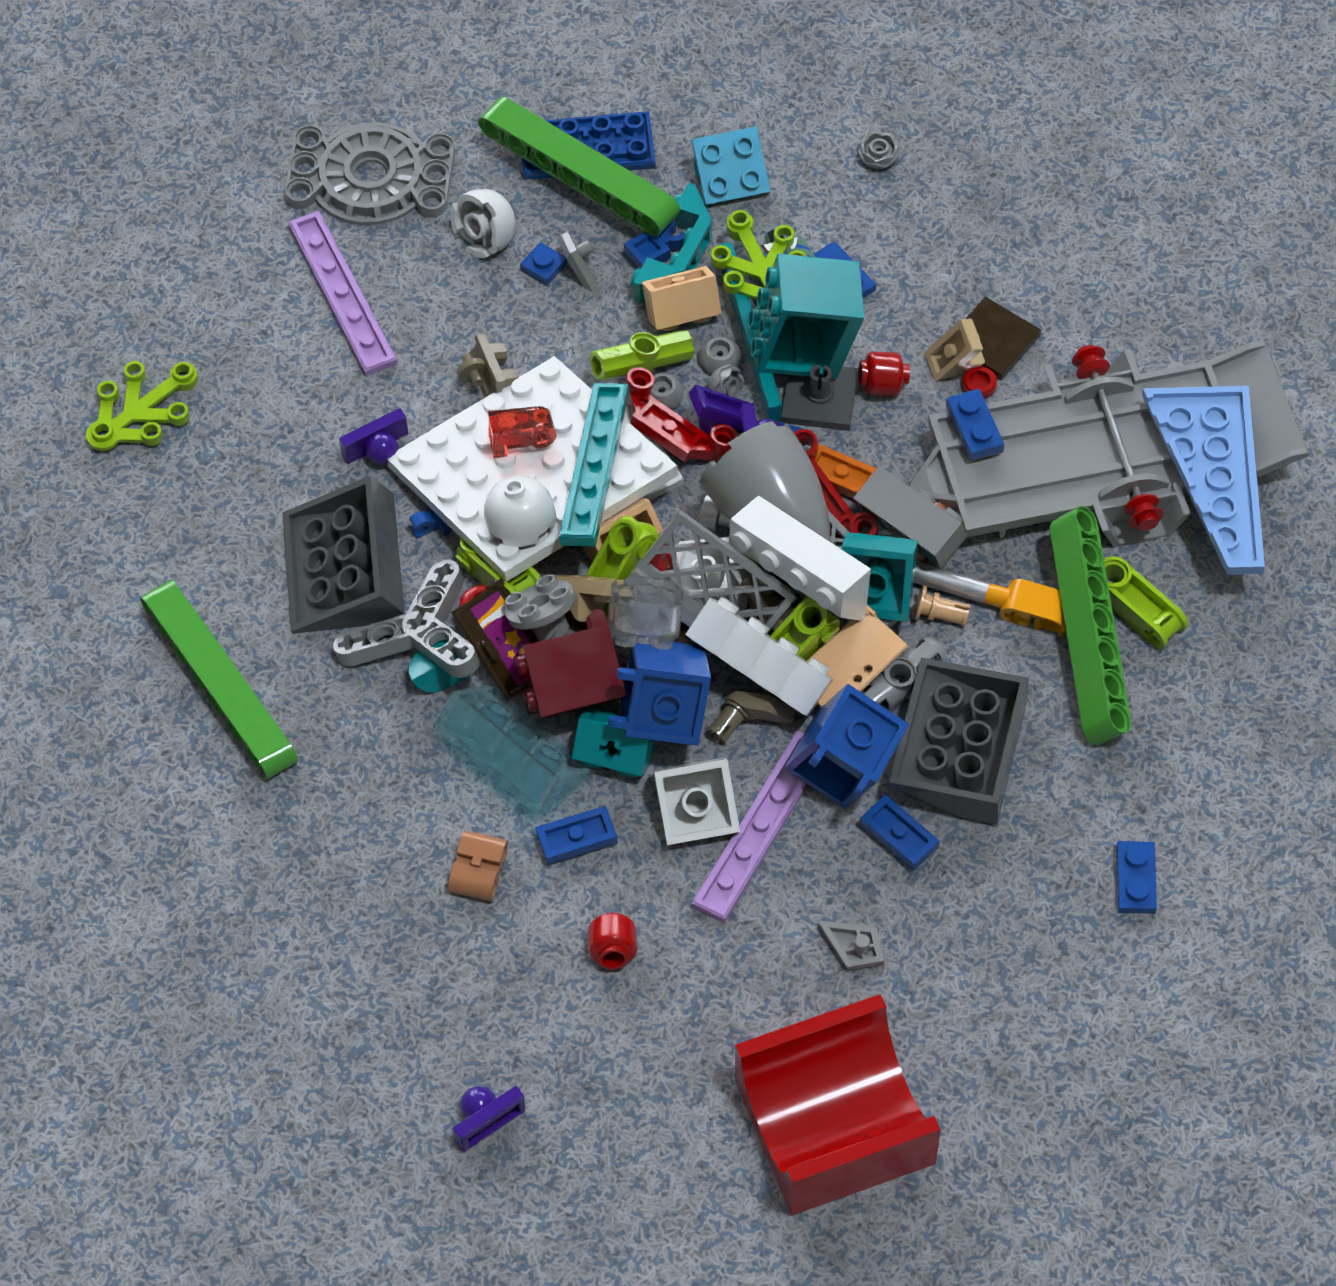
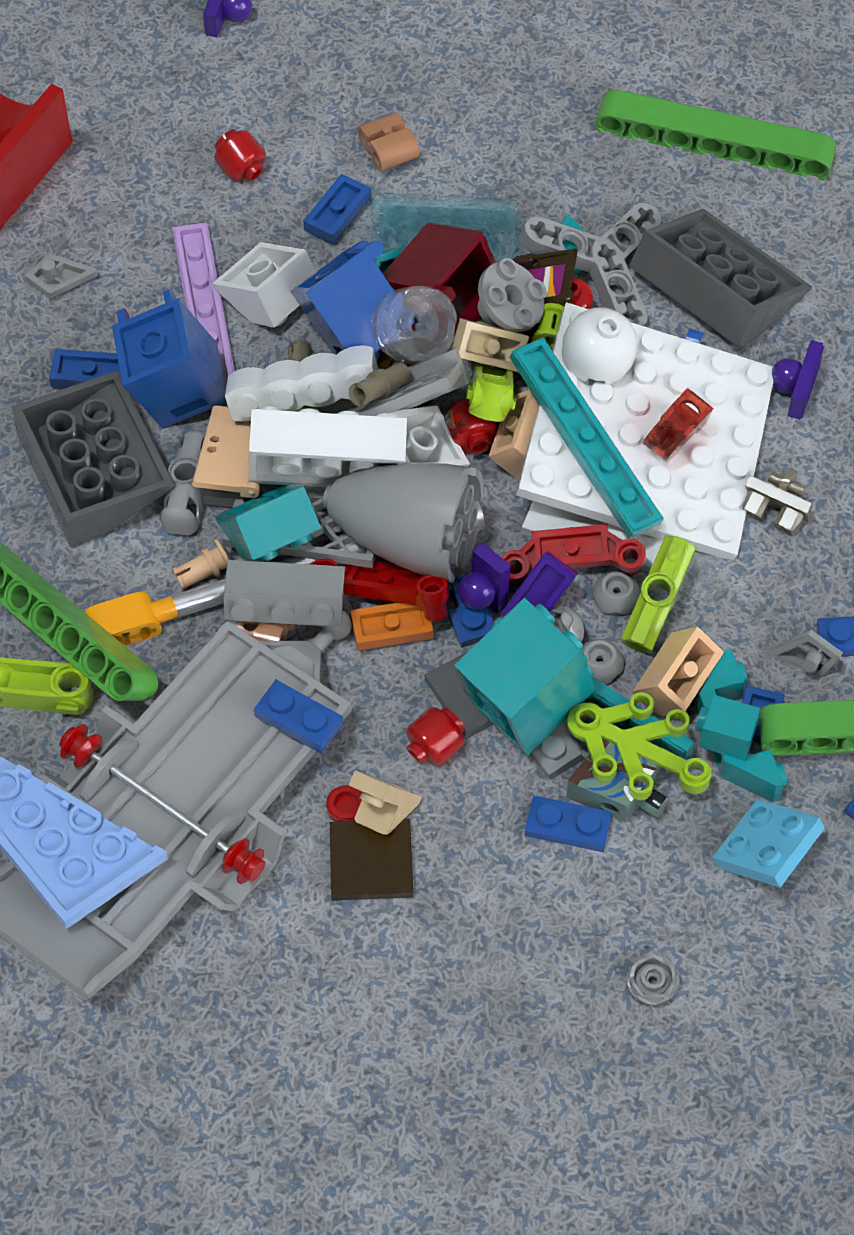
camera: 140 degrees right, 0 degrees up
(694, 222) = (727, 727): none -> teal brick
(716, 583) = (379, 384): none -> dark tan pin

